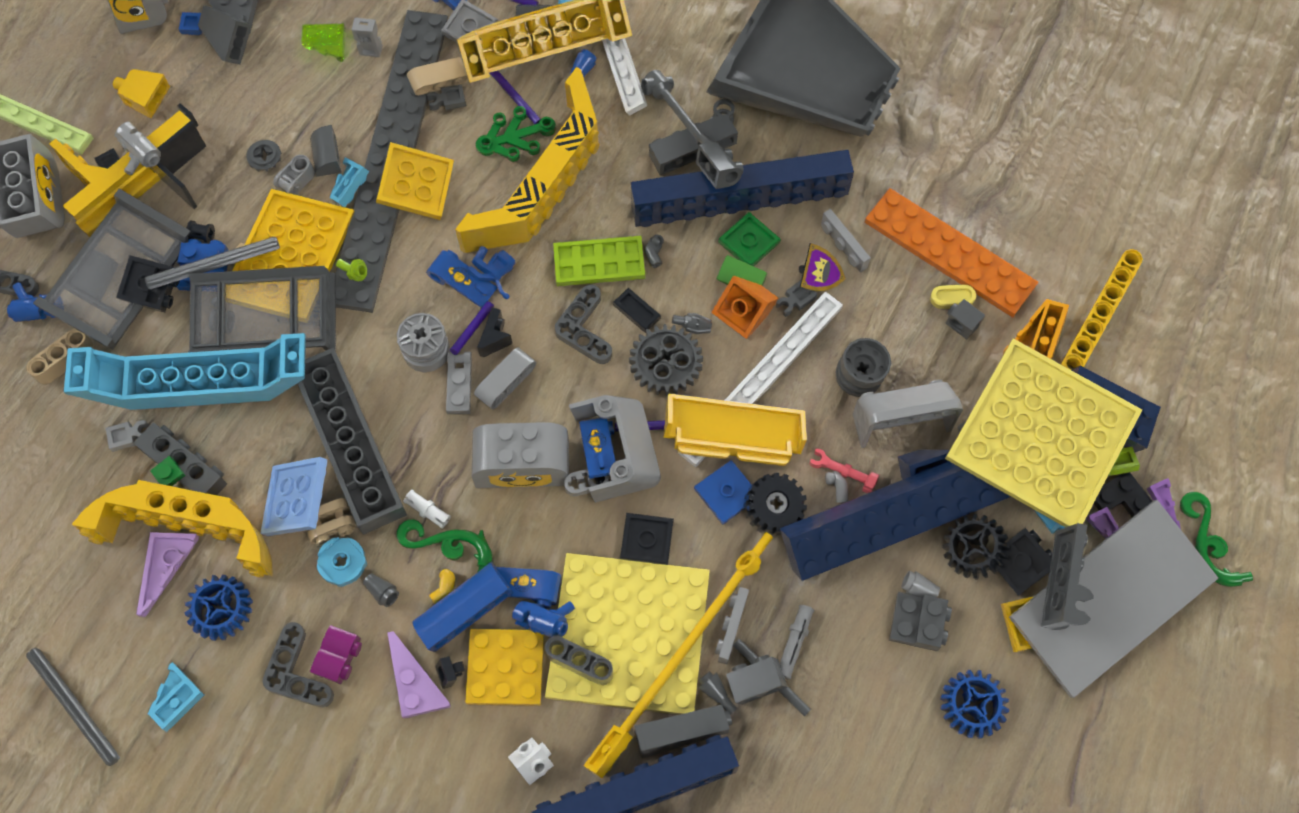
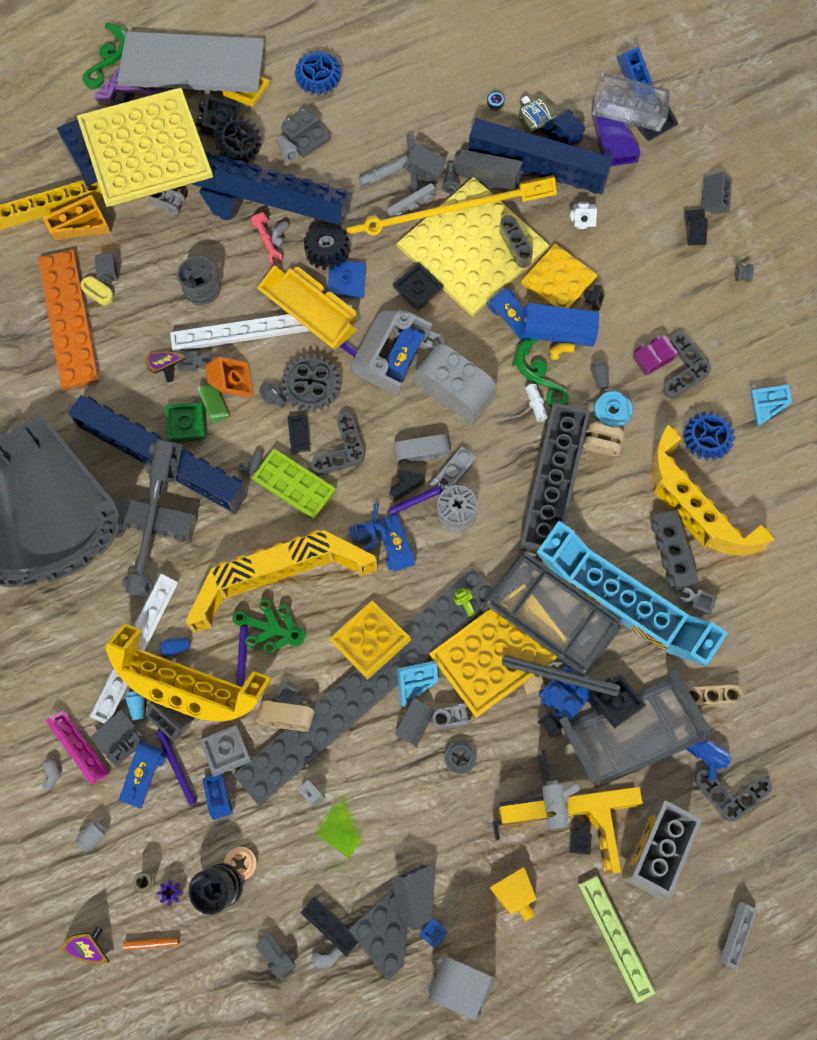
camera: 140 degrees left, 5 degrees up
(163, 559) = (730, 490): lavender wing -> none
(168, 472) = (689, 539): green plate -> none
(294, 497) = (616, 464): light blue plate -> none
(414, 687) = (620, 306): lavender wing -> none
(541, 620) = (518, 279): blue piece -> none
(845, 241) = (126, 373): light grey plate -> none
(906, 407) = (203, 226): light grey windscreen -> none
(1063, 580) = (214, 72): dark grey hinge -> none

